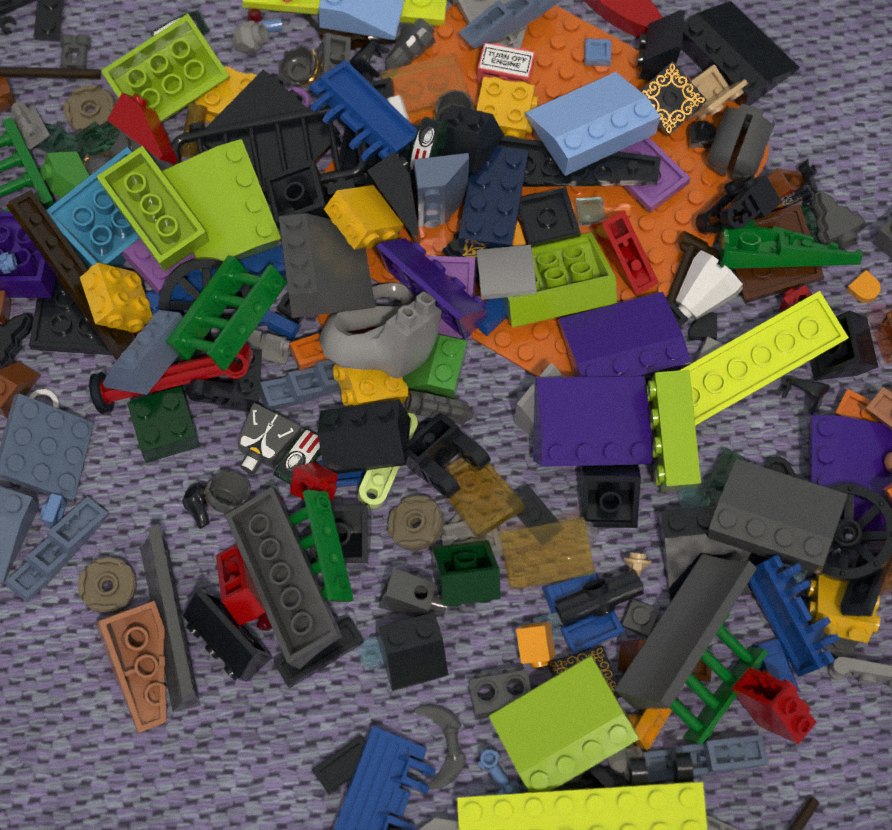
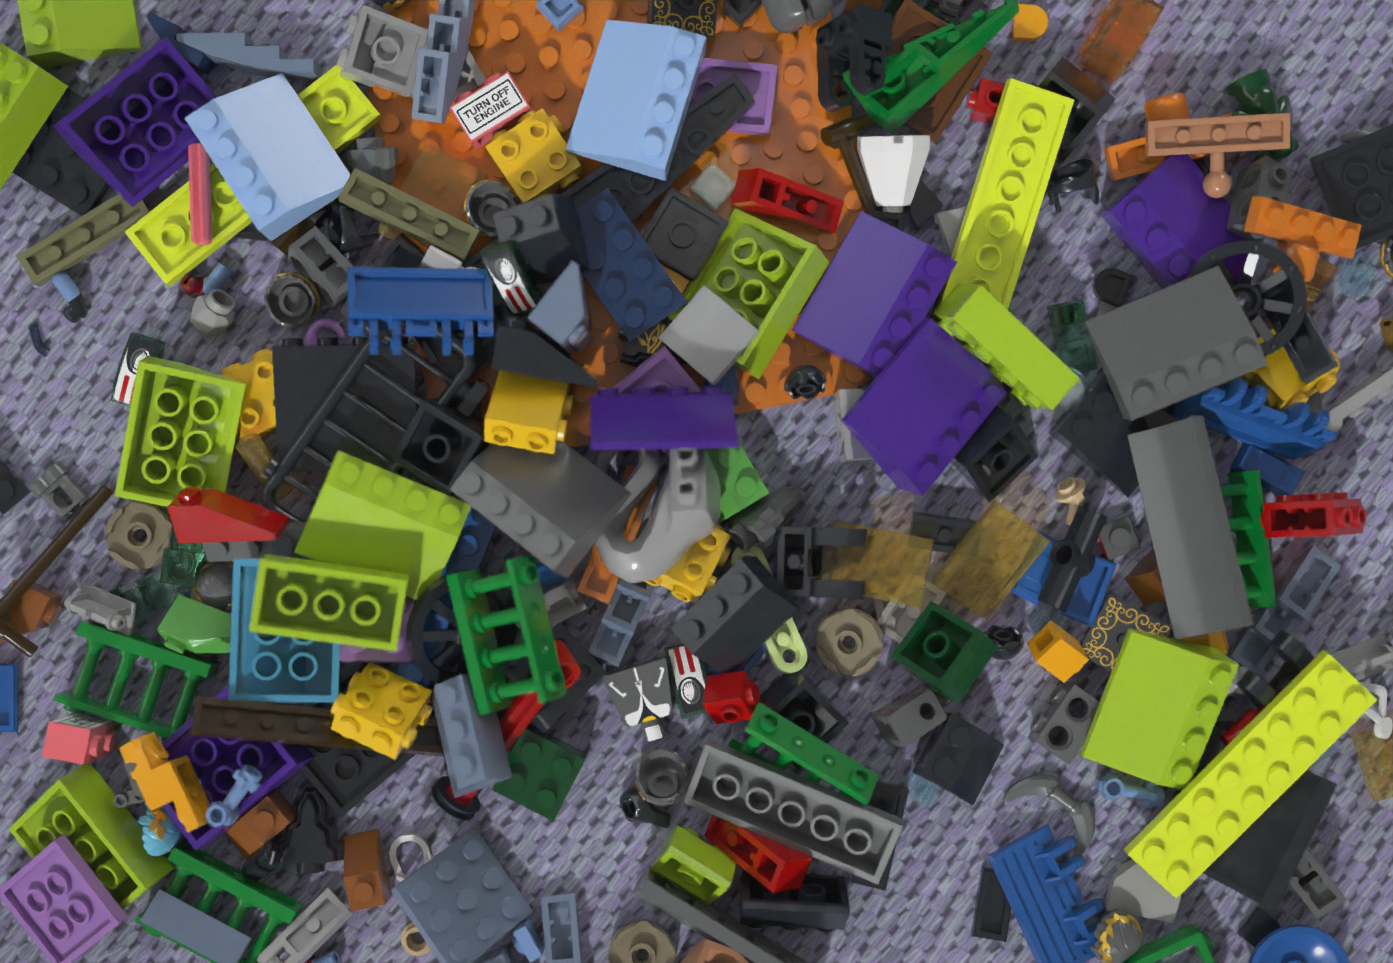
camera: 45 degrees left, 20 degrees up
(192, 556) = (694, 865): none -> lime slope
(406, 74) = (408, 215): none -> olive plate
(507, 610) = (1007, 640): none -> black plate
(536, 353) = (805, 382): none -> black plate

